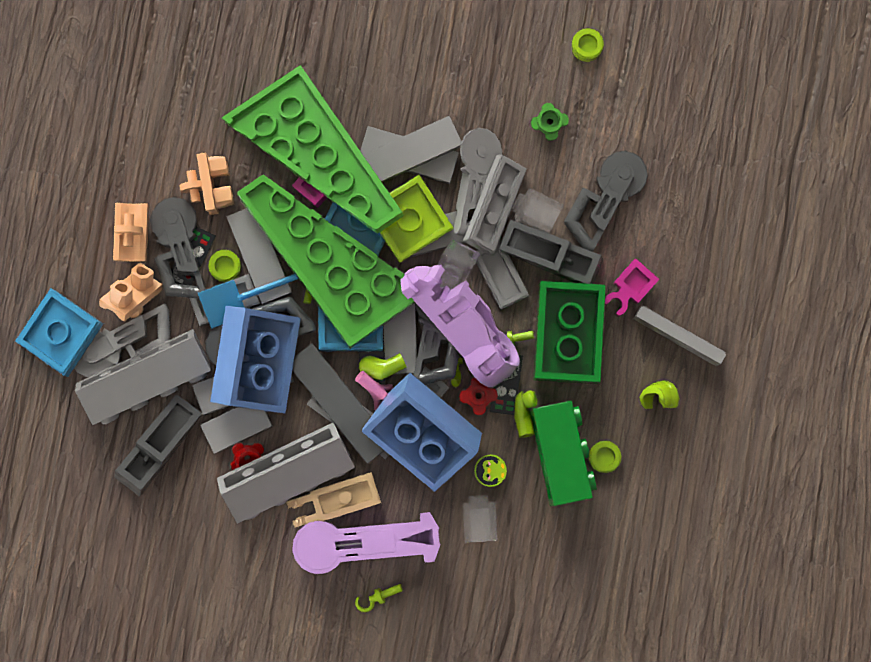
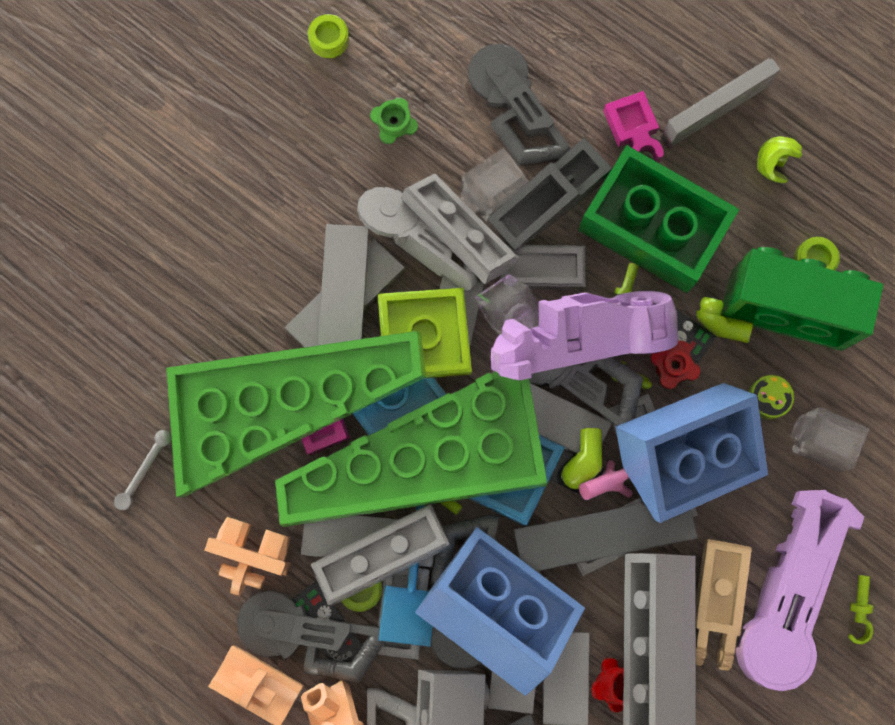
camera: 65 degrees left, 5 degrees down
(203, 86) = (124, 500): none -> light grey hinge
(251, 266) = (380, 555): none -> light grey tile

